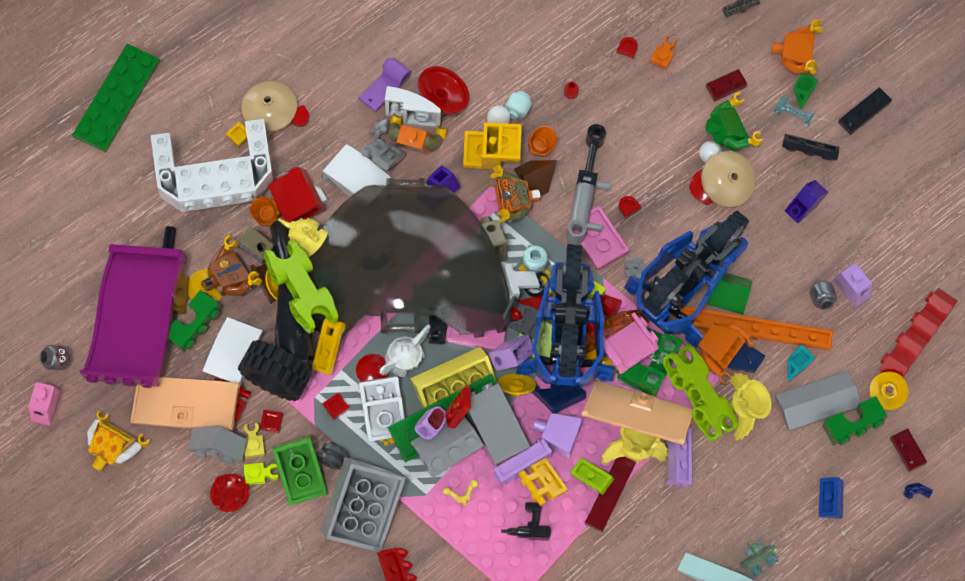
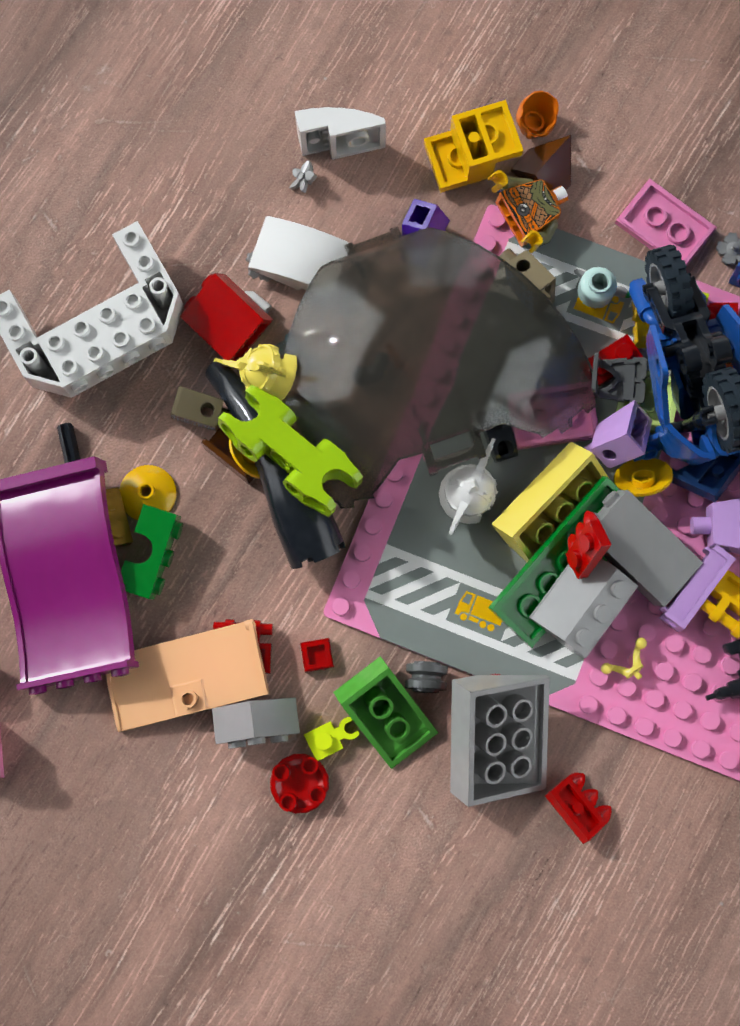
camera: 15 degrees left, 10 degrees up
(110, 443) = (102, 776): torso -> none
(228, 273) = (174, 464): dark orange torso -> none
(230, 349) = (224, 574): white slope -> none
(237, 134) = (107, 256): yellow tile -> none
(254, 444) = (307, 696): light yellow plate -> none
(264, 211) = (189, 354): orange hair -> none
(275, 370) = (299, 586): black tyre -> none
(277, 112) = (151, 205): tan dish -> none
(301, 117) = (183, 200): red tile -> none
(328, 346) = (359, 522): yellow plate -> none
(335, 406) = (400, 601): red tile -> none
(369, 367) = (428, 528): red dish -> none
(381, 406) = (465, 578): white slope -> none
(383, 155) = (326, 211): light grey plate -> none
(393, 75) = (291, 95): medium lavender door -> none
(414, 138) = (357, 174): torso -> none
(430, 423) = (553, 582): lavender rock -> none
(443, 89) = (372, 89): red dish -> none
(498, 114) = (461, 99): white piece -> none
(518, 105) = (482, 76): light aqua head -> none
(523, 279) = (594, 324): white piece -> none
(571, 90) = (545, 29): red hose -> none
(585, 189) = (622, 156): light grey piece -> none
(628, 206) = (688, 165): red tile -> none

